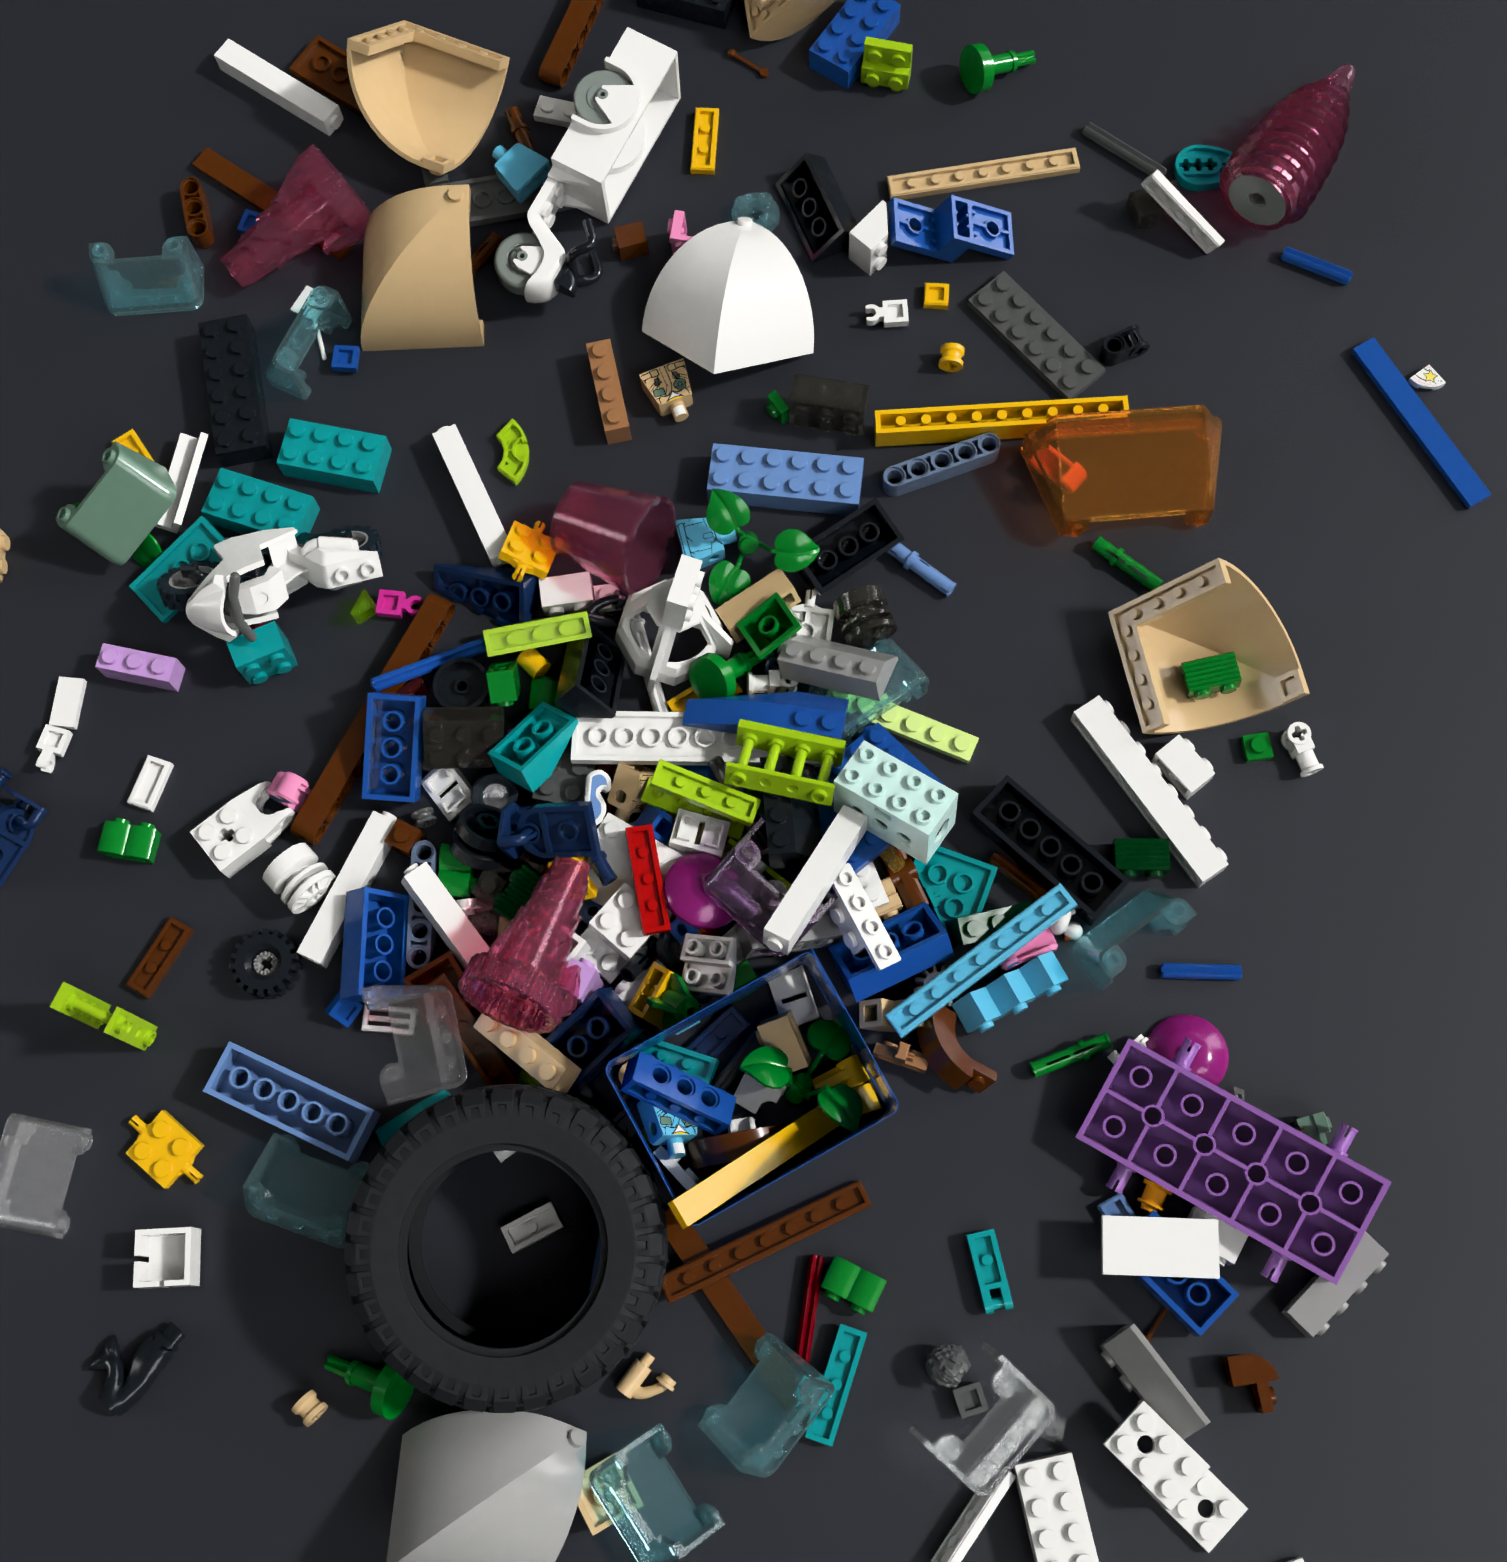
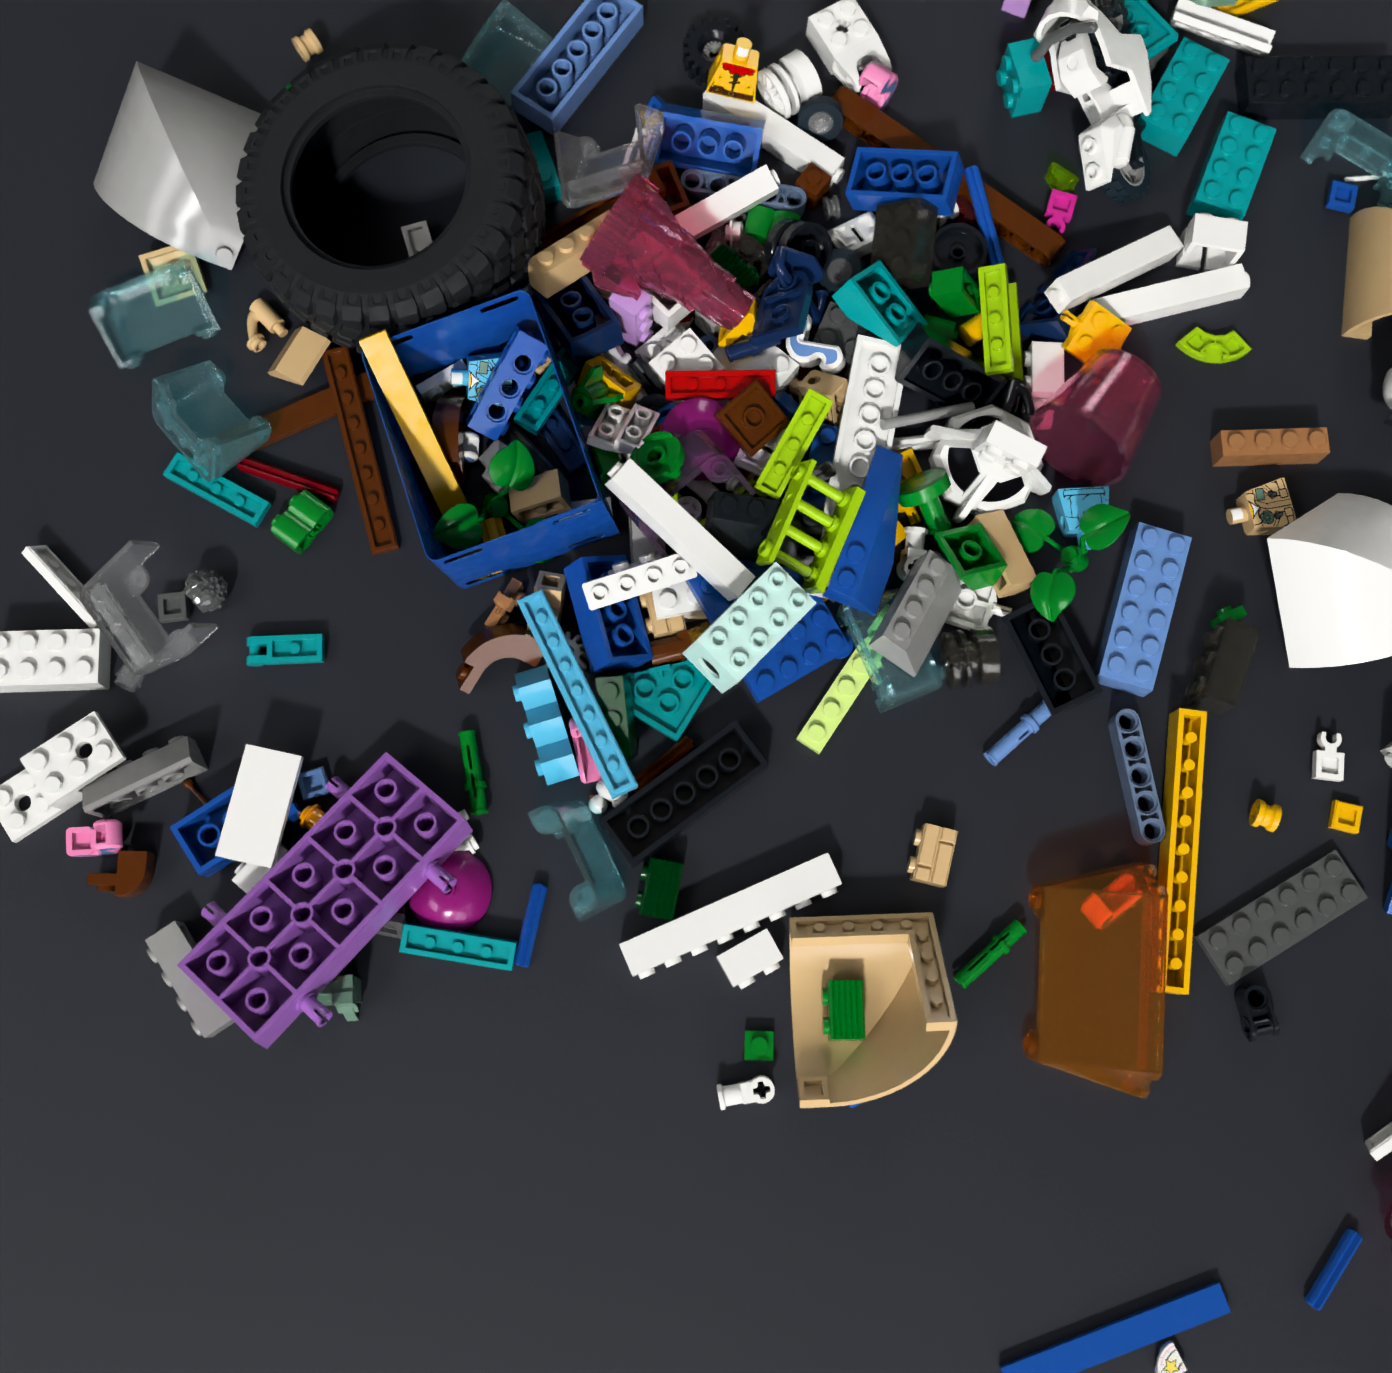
camera: 90 degrees right, 5 degrees up
(299, 929) = (735, 71): none -> yellow torso
(331, 841) = (821, 118): none -> black wheel
(414, 458) = (1221, 236): none -> white piece
(459, 542) = (1113, 269): none -> white brick
(640, 686) = (927, 415): none -> light grey bar
(676, 1329) = (299, 356): none -> tan slope
(679, 840) = (752, 418): none -> reddish brown plate
(732, 904) = (671, 459): none -> green plate
(1051, 624) = (932, 855): none -> tan brick
(1223, 1411) = (99, 840): none -> bright pink animal
(1239, 1033) = (458, 946): none -> teal plate

